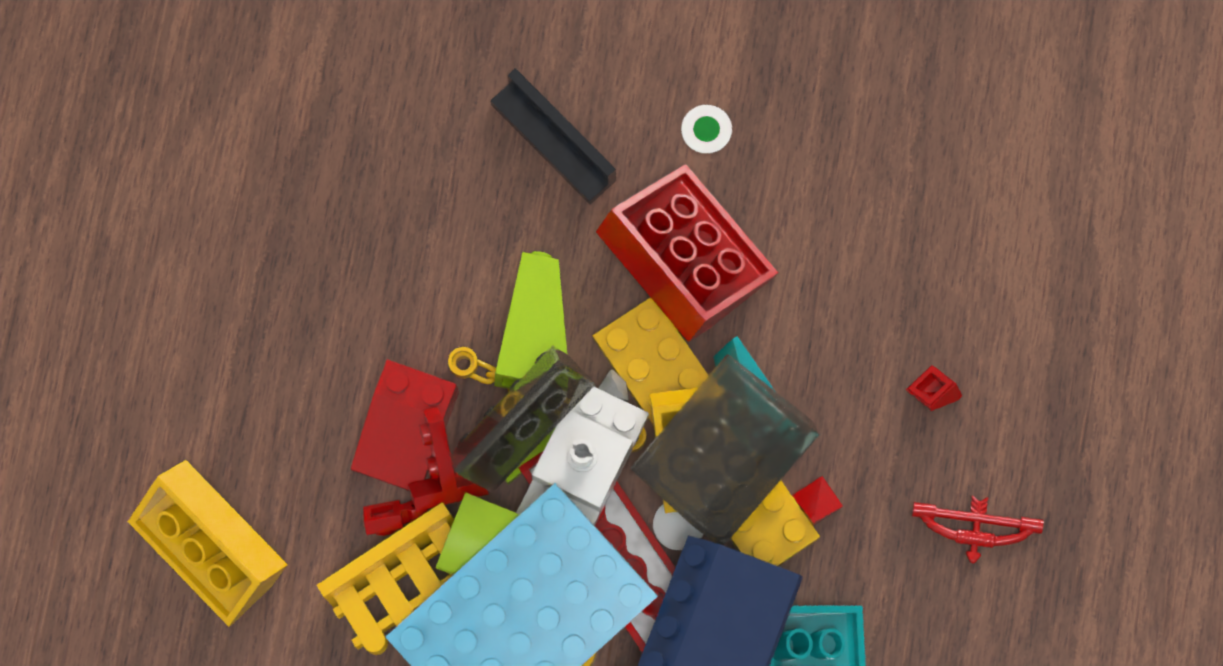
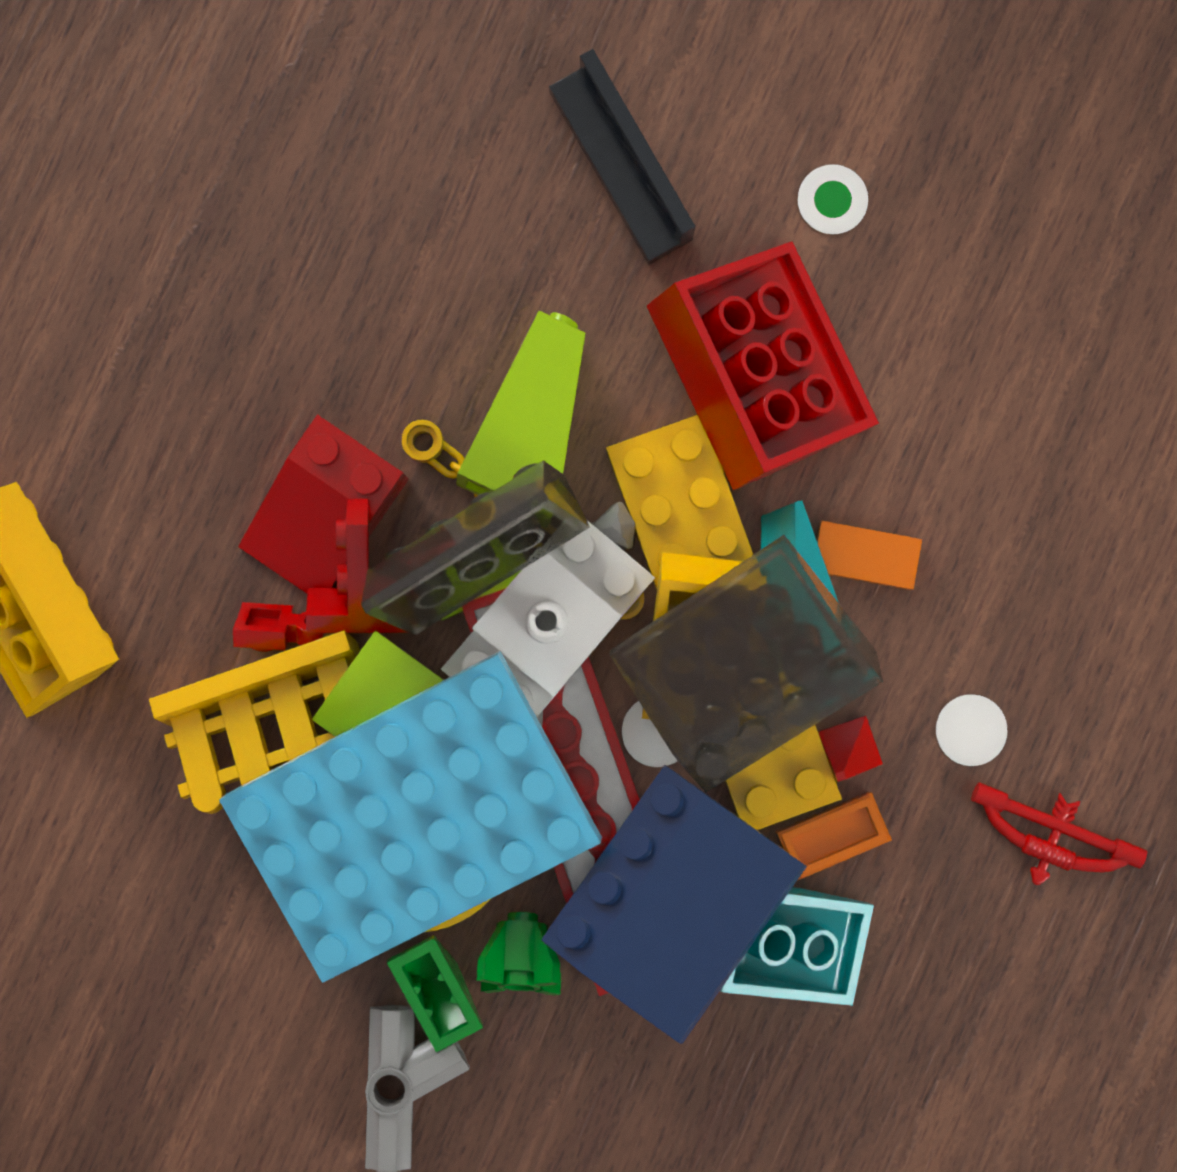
camera: 15 degrees right, 10 degrees up
(795, 364) = (869, 555): none -> orange tile
(824, 563) = (835, 834): none -> orange tile
(899, 468) = (971, 730): none -> white sticker
(934, 389) = (1047, 636): red slope -> none

